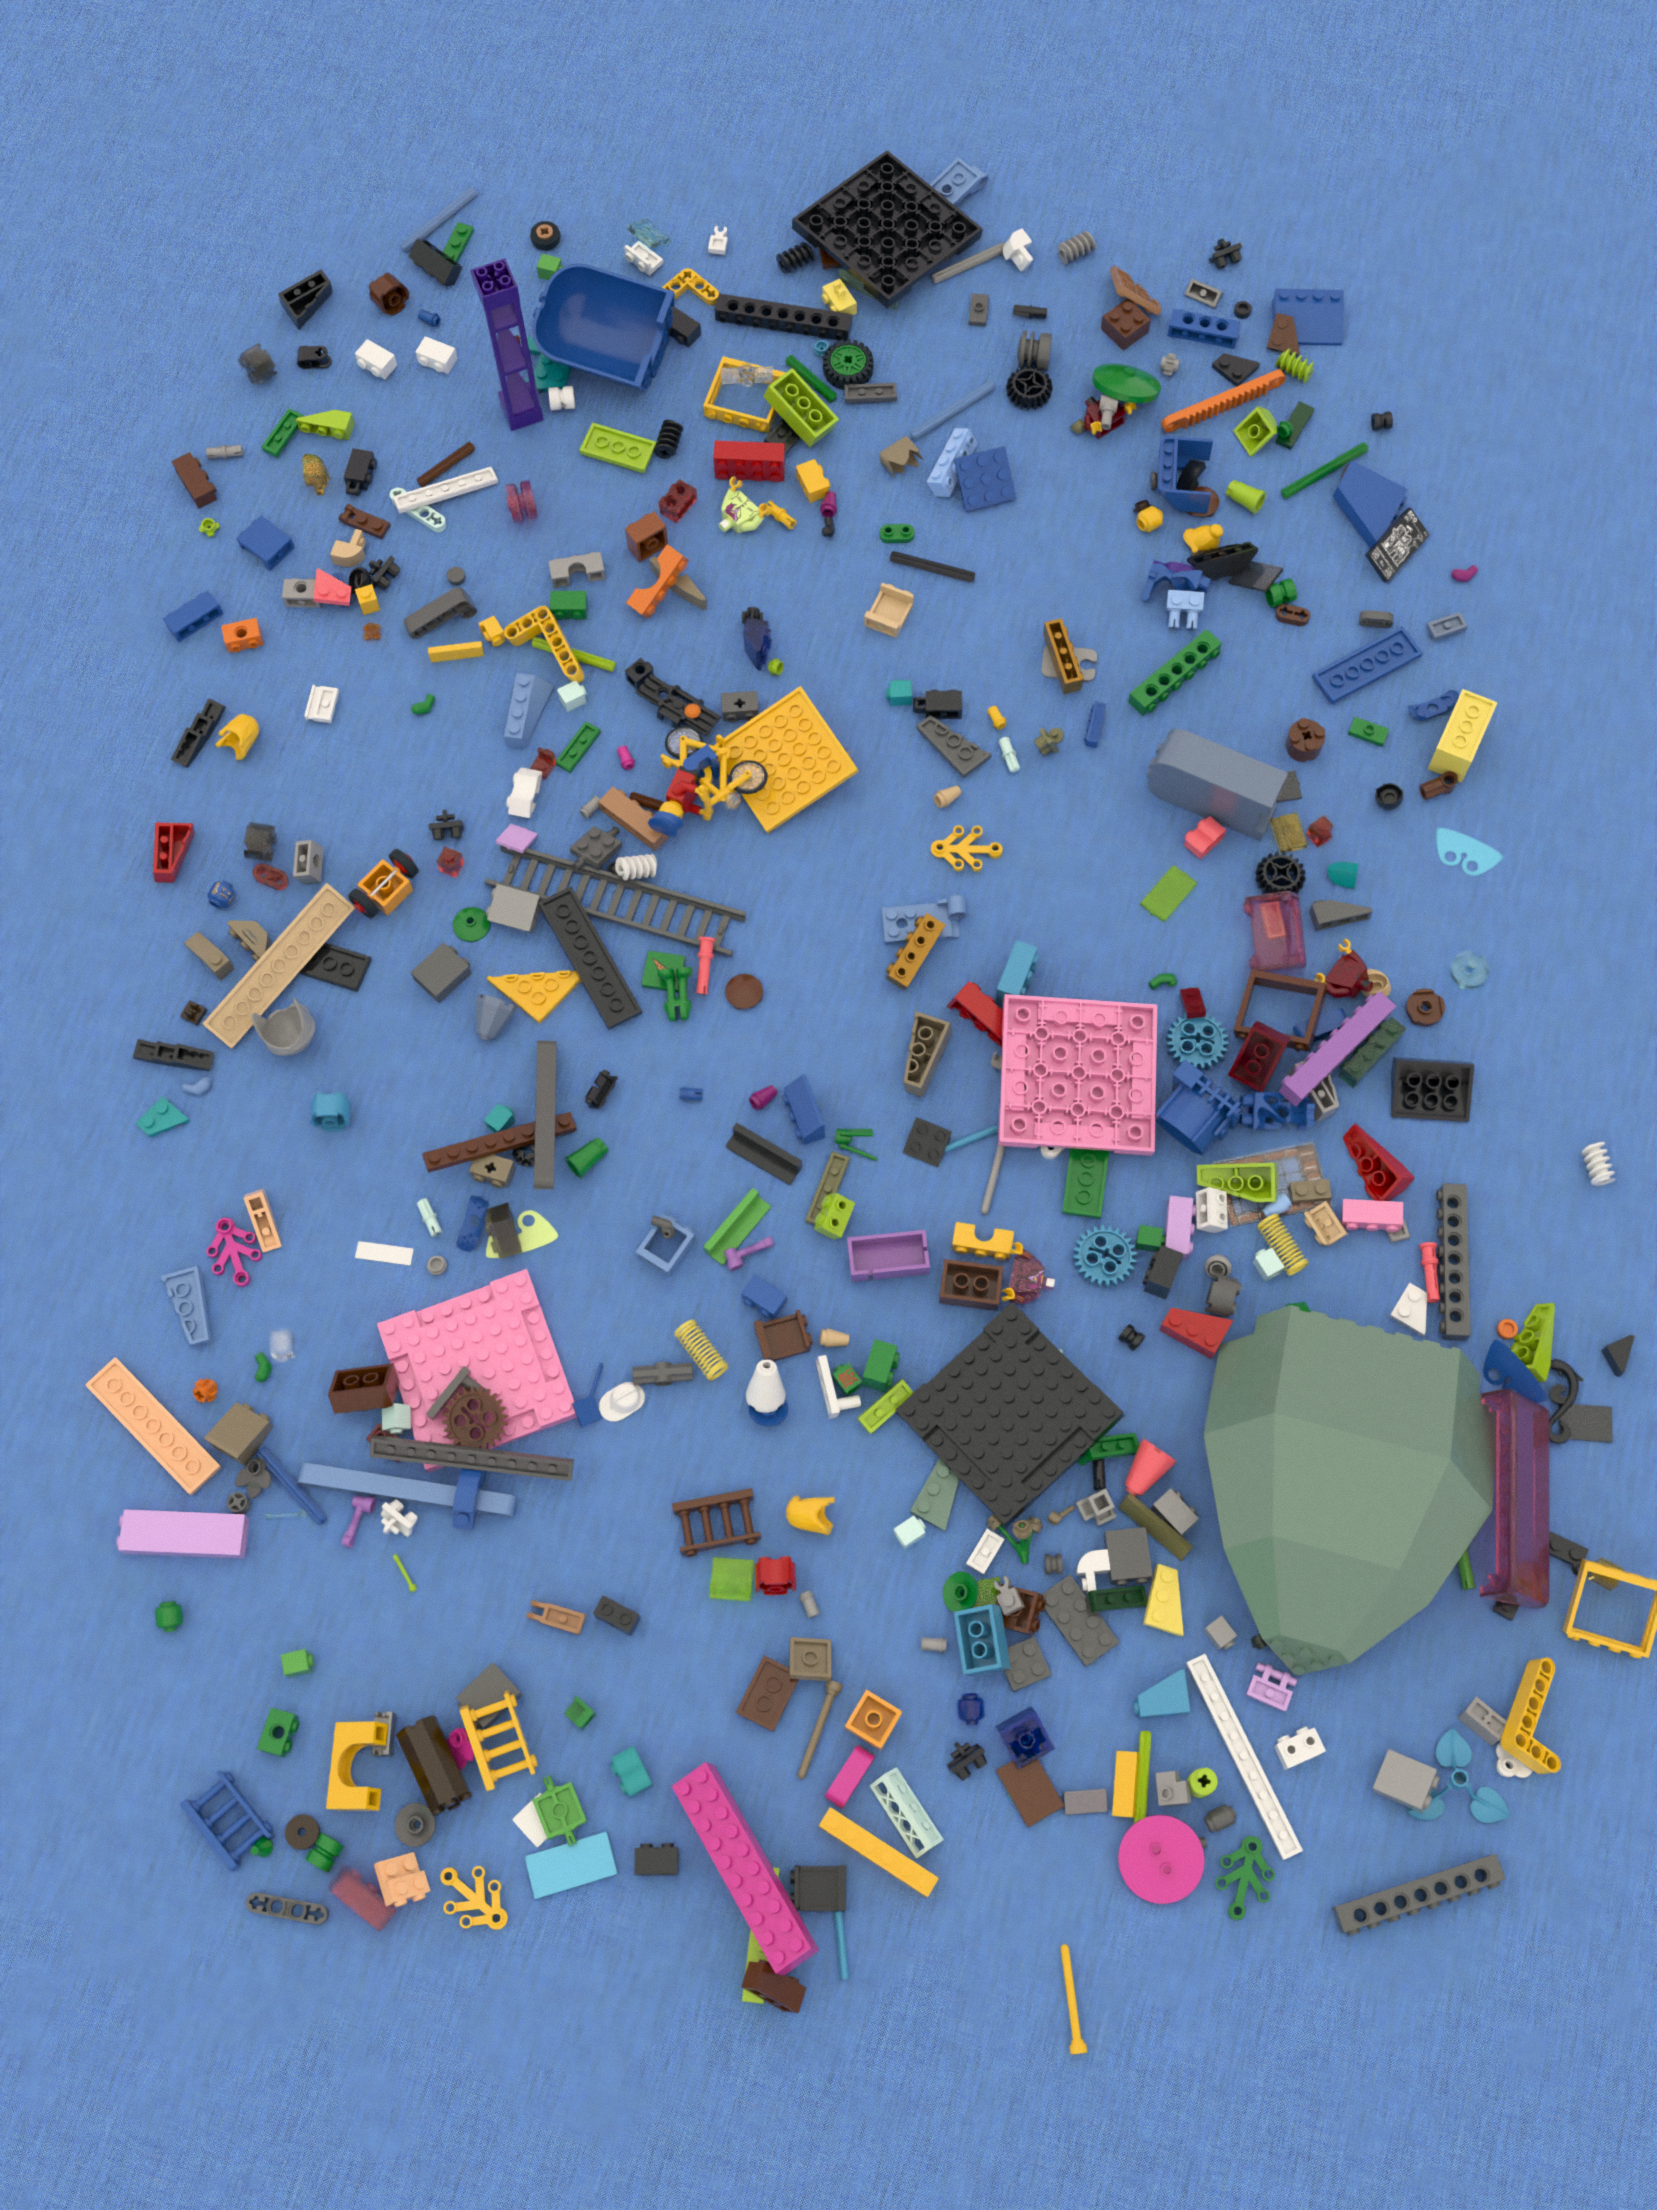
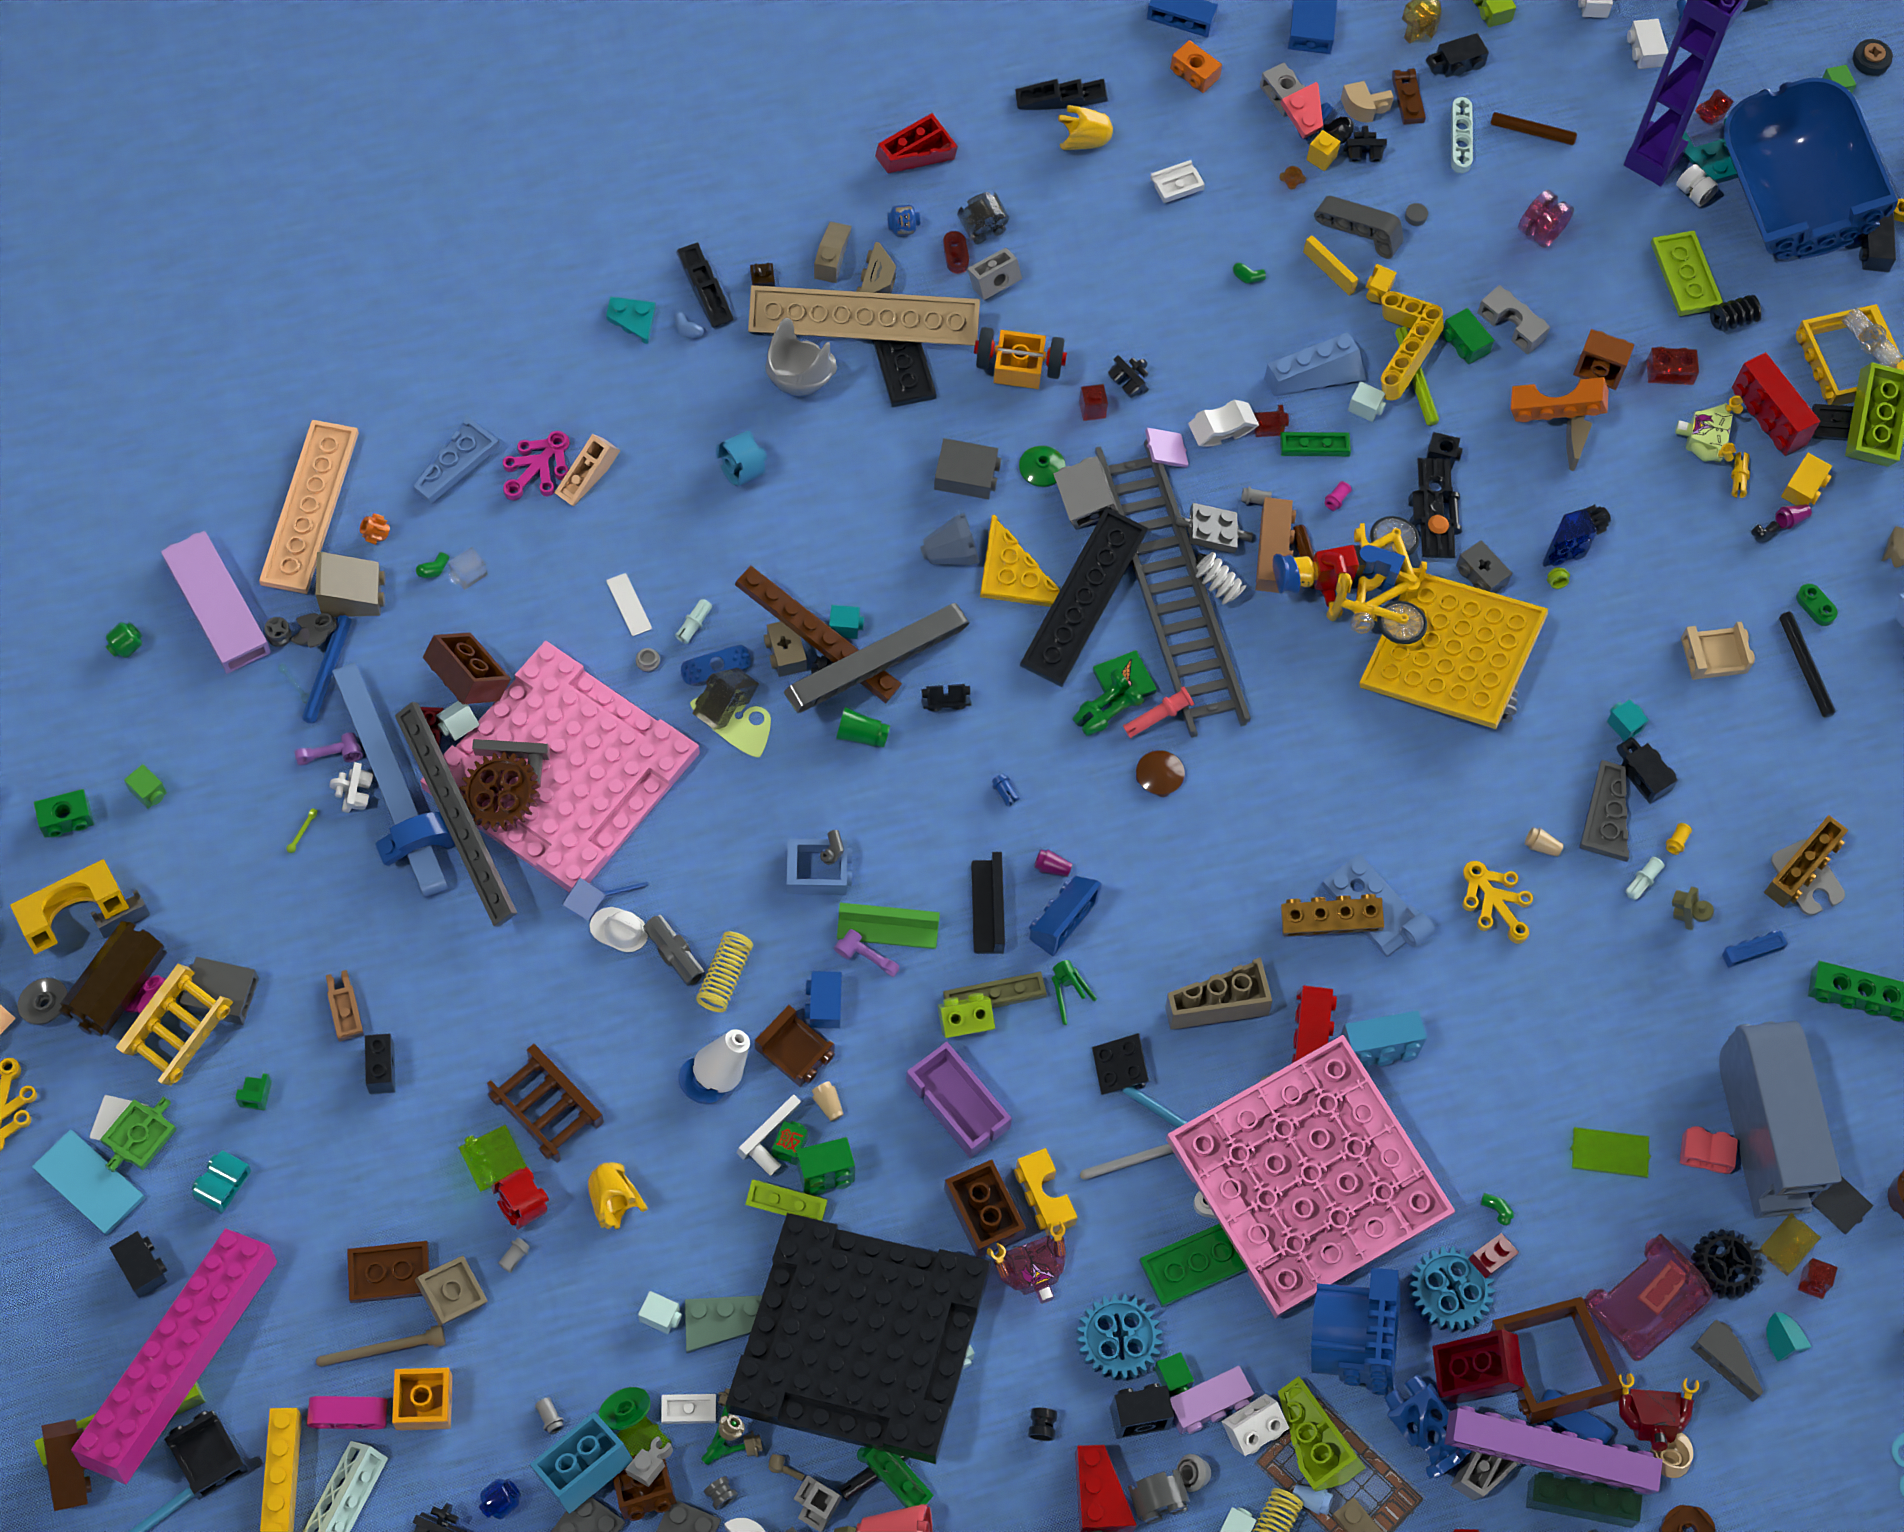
camera: 50 degrees right, 5 degrees down
(445, 490) = (1503, 144): white tile -> none

